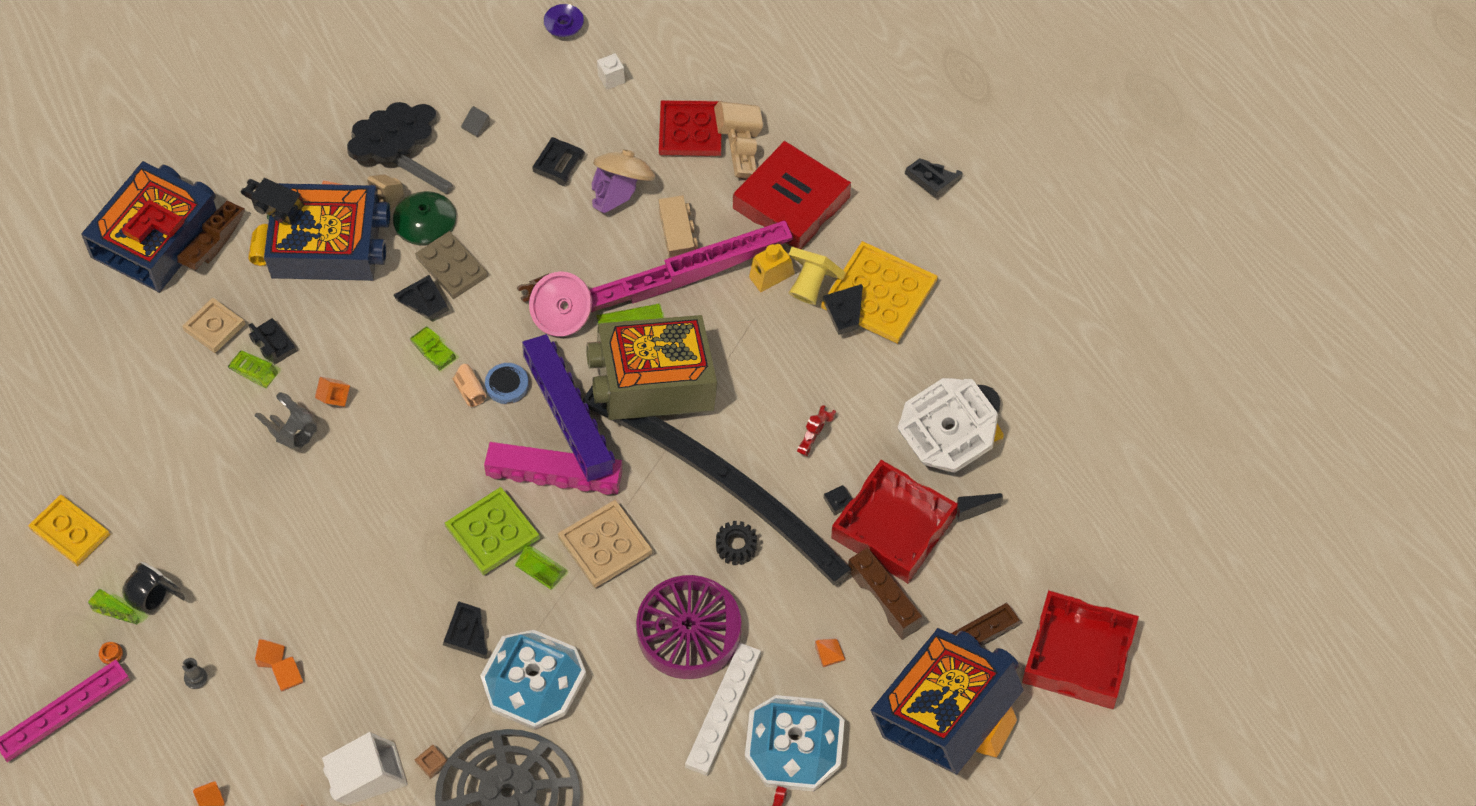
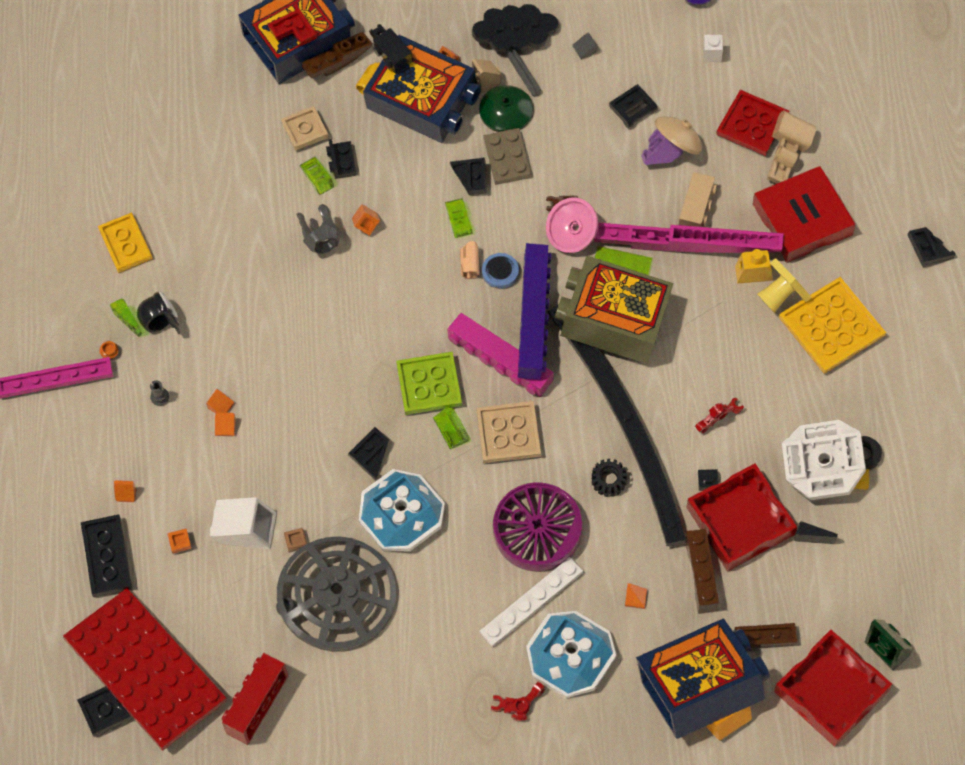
camera: 30 degrees right, 5 degrees up
(844, 308) = (795, 326): black wing -> none
(1110, 580) = (887, 643): none -> dark green slope

